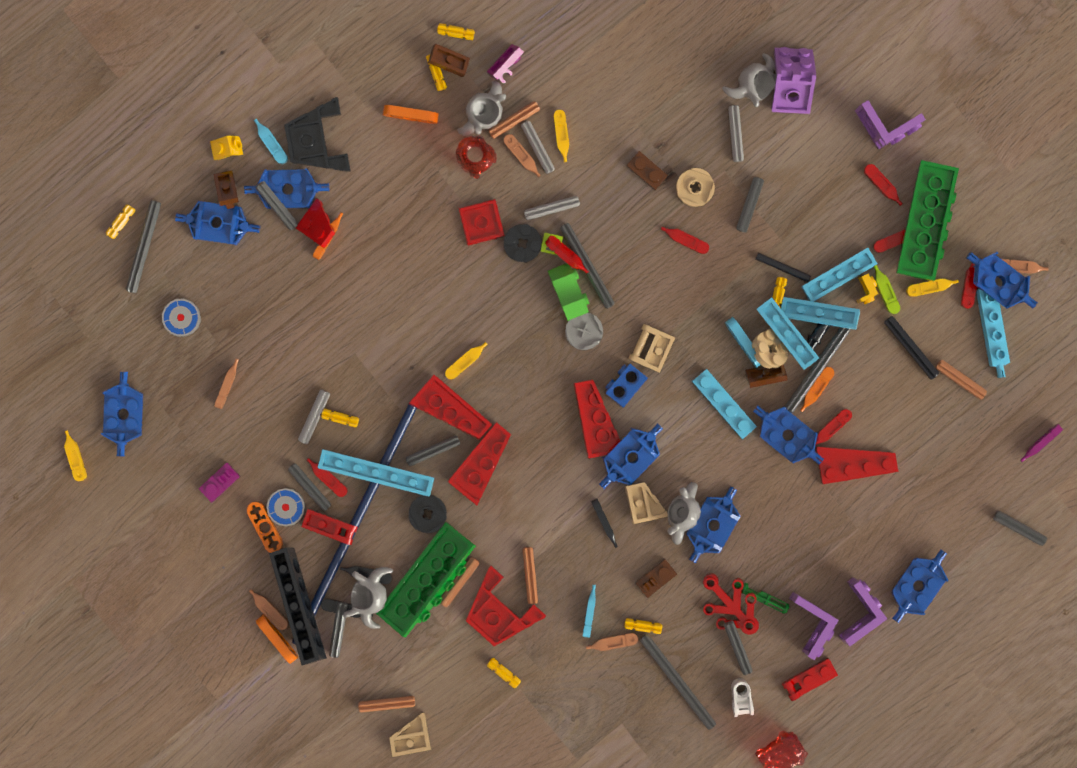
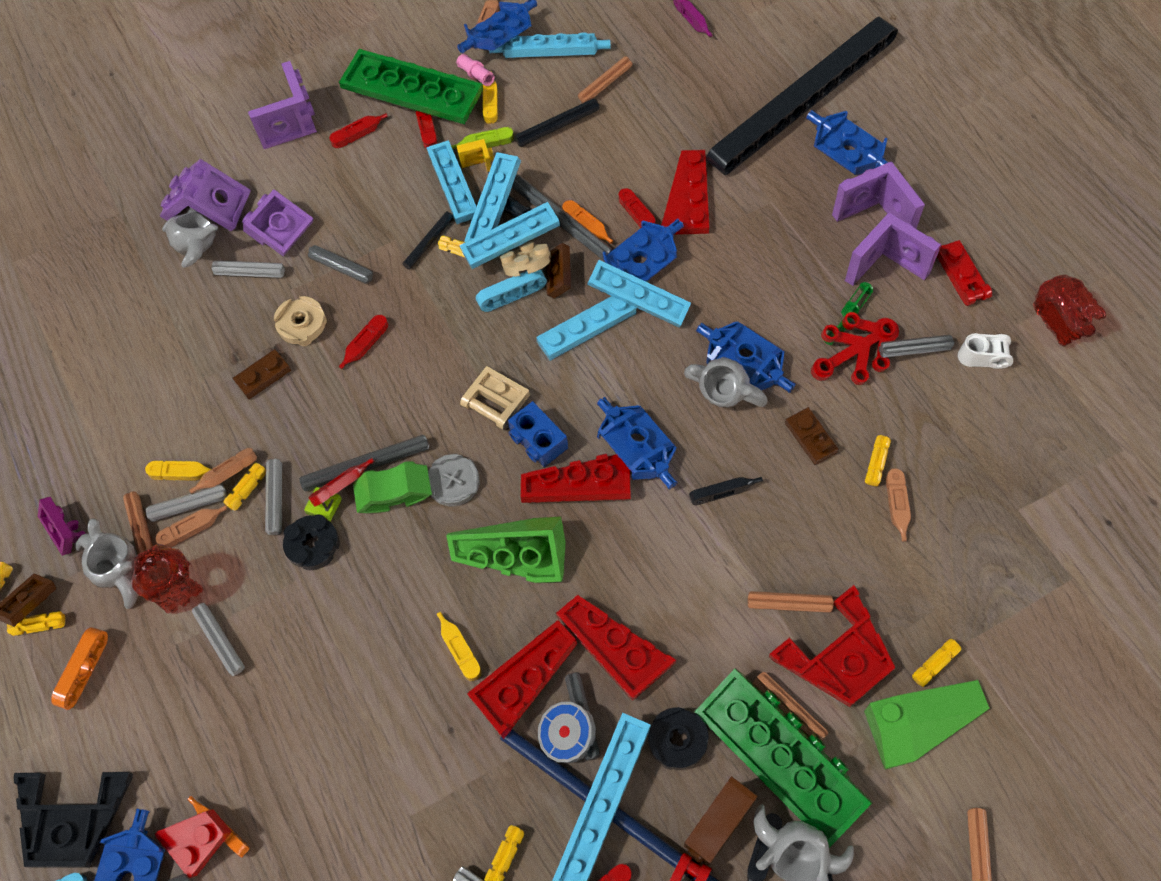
camera: 75 degrees left, 25 degrees down
(378, 546) = (719, 822): none -> reddish brown slope
(411, 738) = (1038, 823): tan wing -> none
(419, 443) = (566, 732): none -> tile
(445, 199) = (218, 639): none -> light grey axle
(462, 663) = (919, 721): none -> bright green wedge
(481, 222) = (265, 594): red tile -> none
(540, 391) = (521, 548): none -> bright green wedge
(556, 185) = (245, 486): none -> yellow axle
(566, 168) = (226, 469): none -> nougat piece
(589, 613) = (855, 527): medium azure piece -> none
(643, 504) = (704, 436): tan wing -> none
(677, 681) = (959, 427): dark grey axle -> none
(751, 440) = (639, 293): none -> medium azure plate
(778, 145) = (276, 222): none -> medium lavender plate
(954, 270) = (475, 70): none -> bright pink pin
(966, 545) = (801, 96): none -> black beam
(969, 289) = (499, 62): red piece -> none
(1020, 528) = (789, 45): dark grey axle -> none

